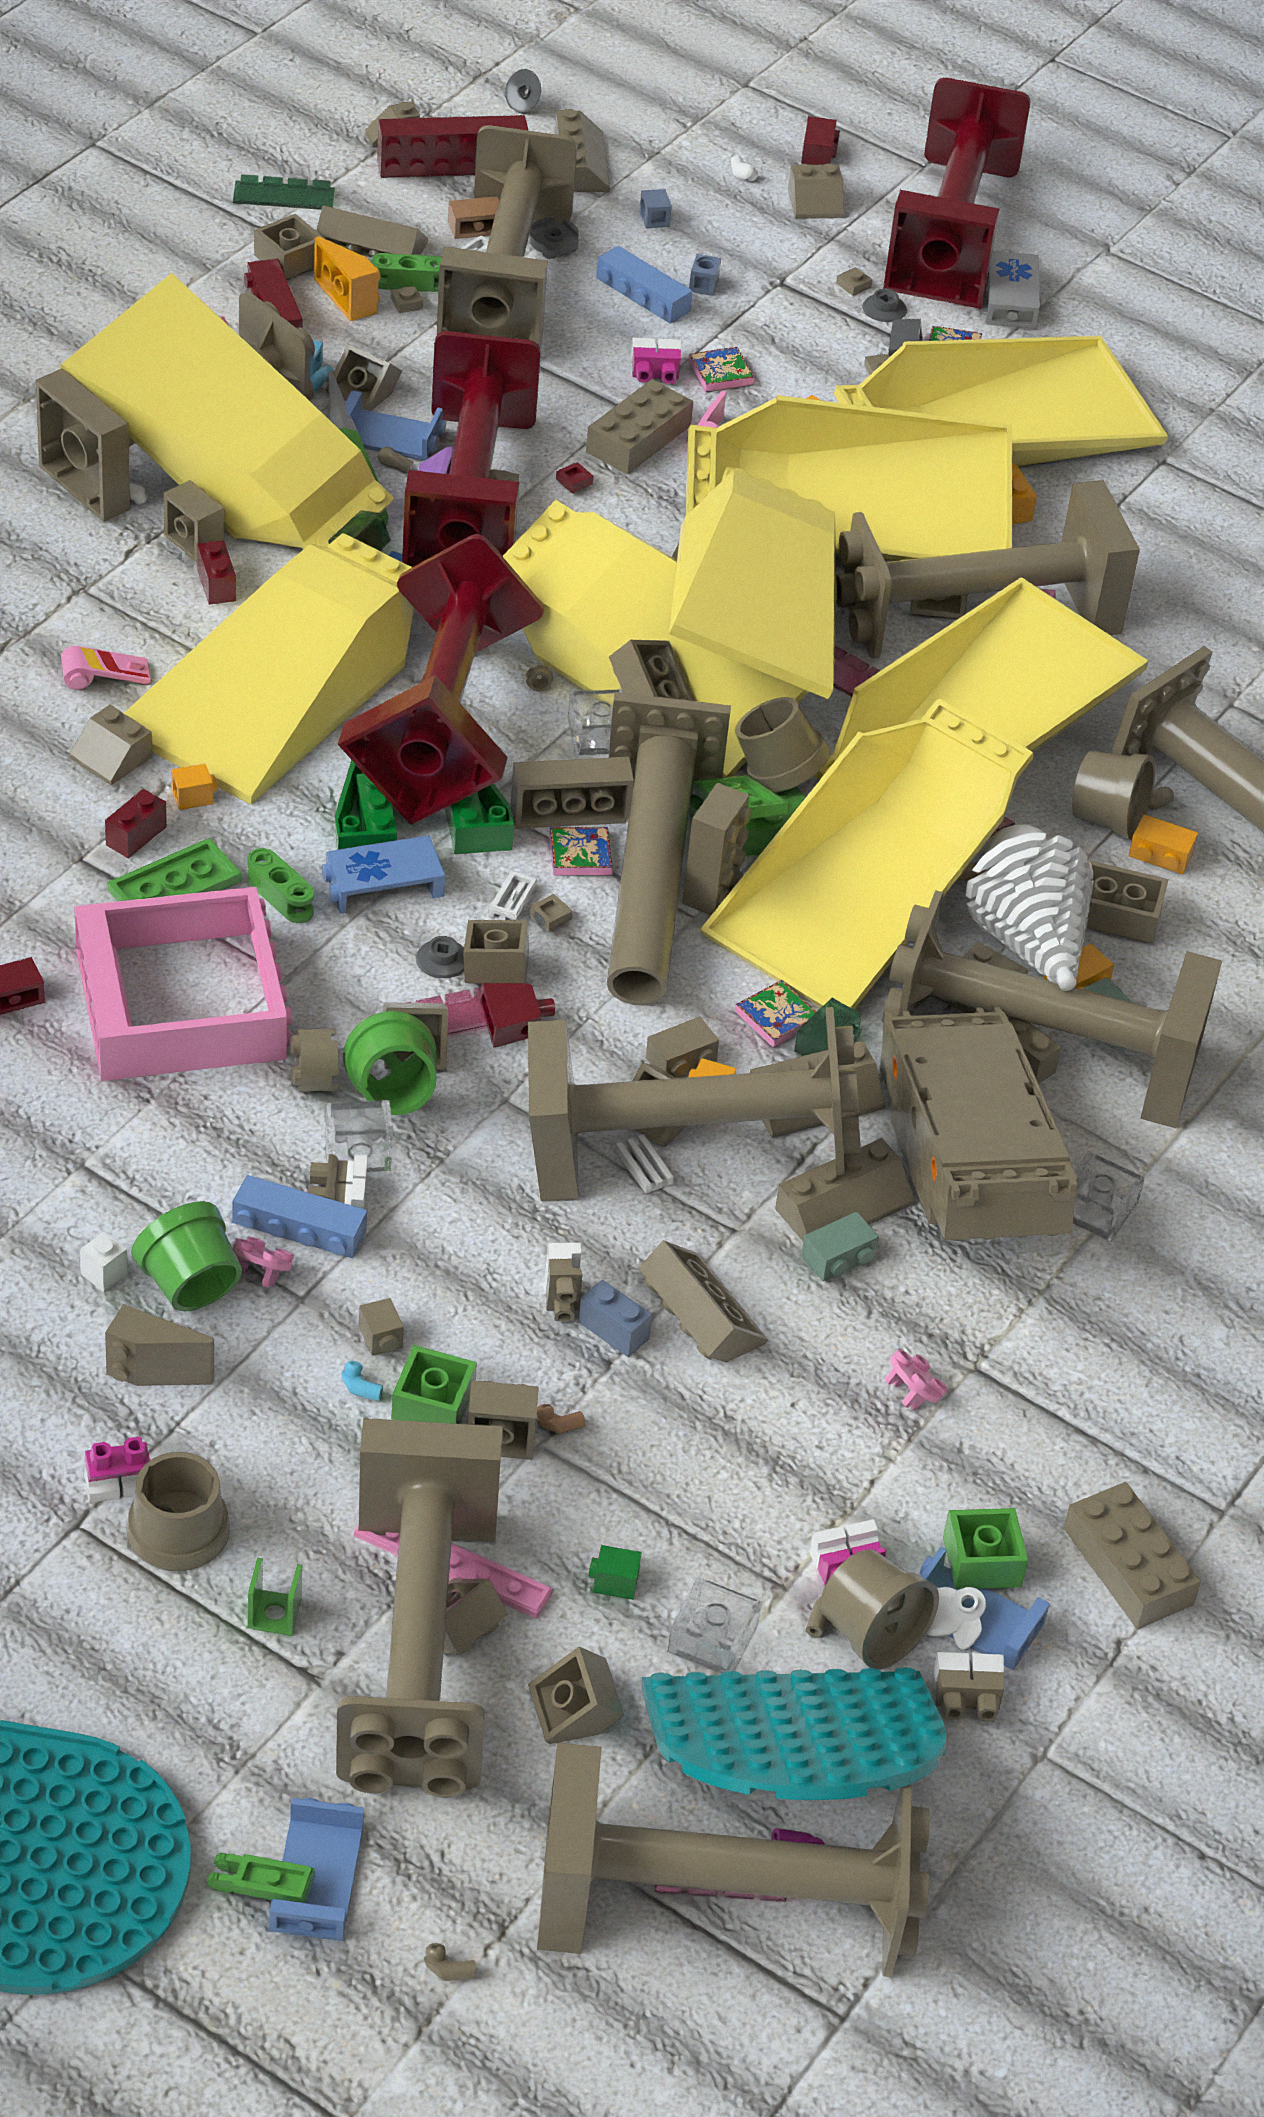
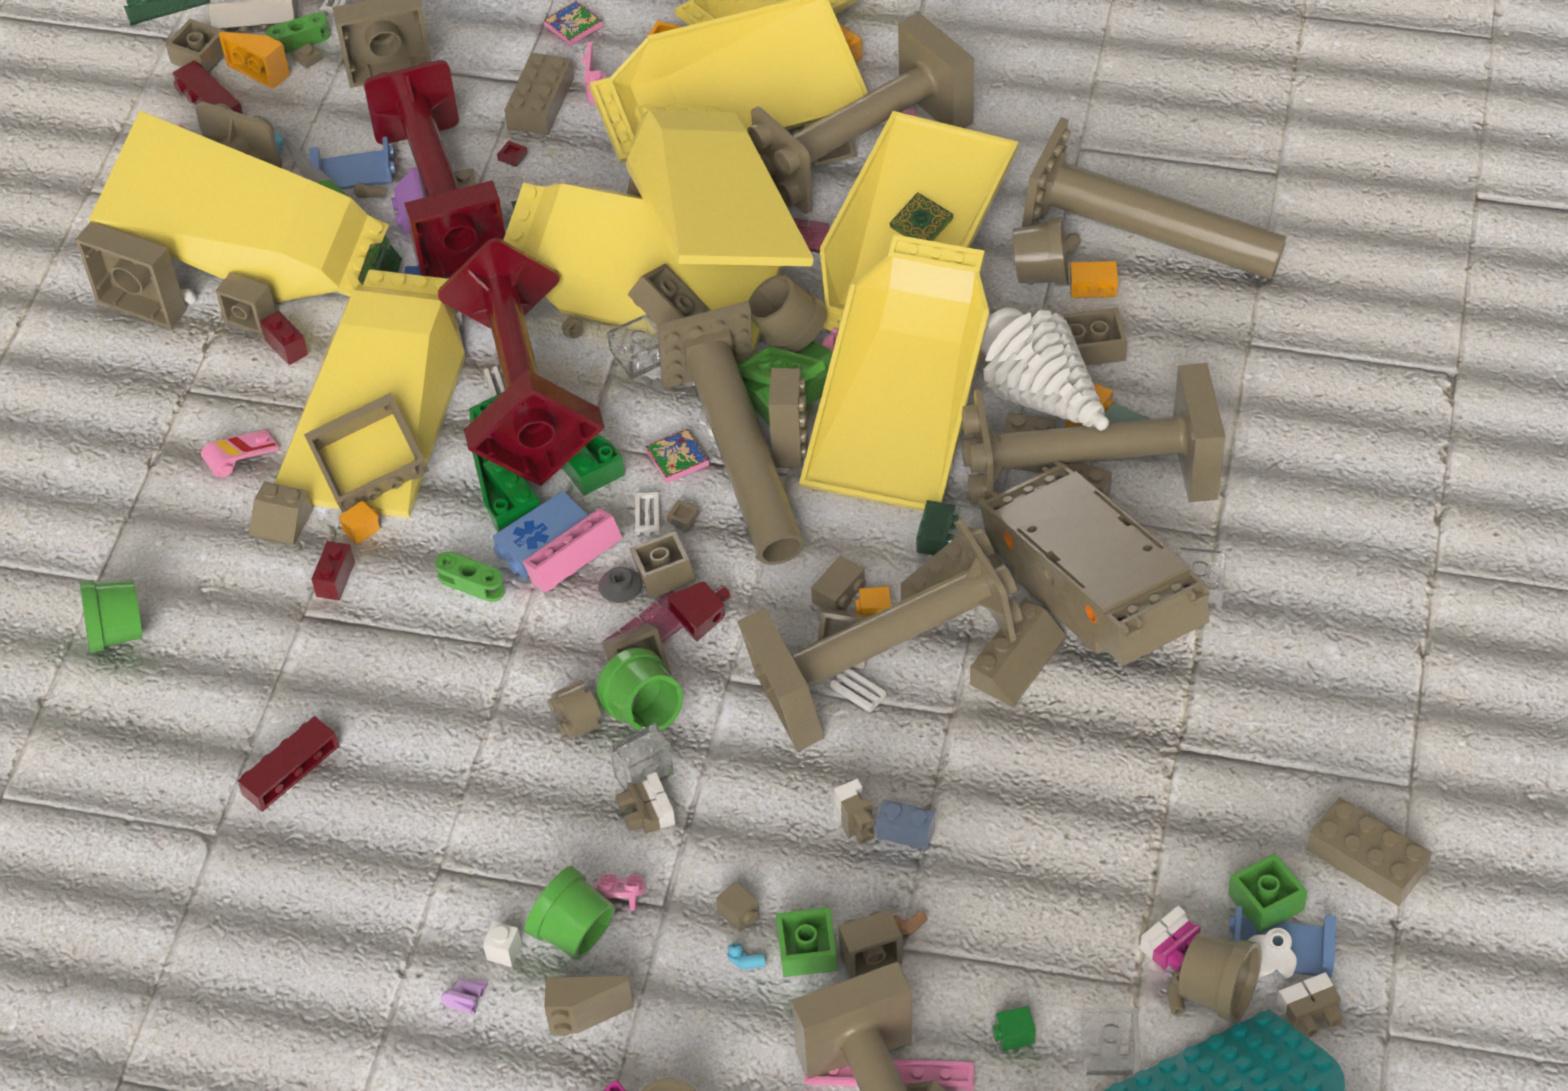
camera: 15 degrees left, 5 degrees up
(27, 1297) = (458, 1000): none -> lavender piece
(187, 871) = (387, 606): bright green plate -> none
(187, 1044) = (415, 759): bright pink door -> none
(235, 679) = (354, 422): none -> dark tan window
(299, 1216) = (629, 842): medium blue brick -> none
(365, 374) = (311, 130): dark tan slope -> none
(406, 900) = (572, 550): none -> bright pink brick
(571, 792) = (650, 412): dark tan brick -> none
(661, 365) = (522, 34): dark pink hips -> none
(700, 1303) = (960, 785): dark tan slope -> none
(775, 1012) = (889, 527): tile -> none
(839, 1246) = (1035, 696): sand green brick -> none
(918, 1378) = (1145, 776): bright pink plate -> none
(995, 704) = (921, 219): none -> plate

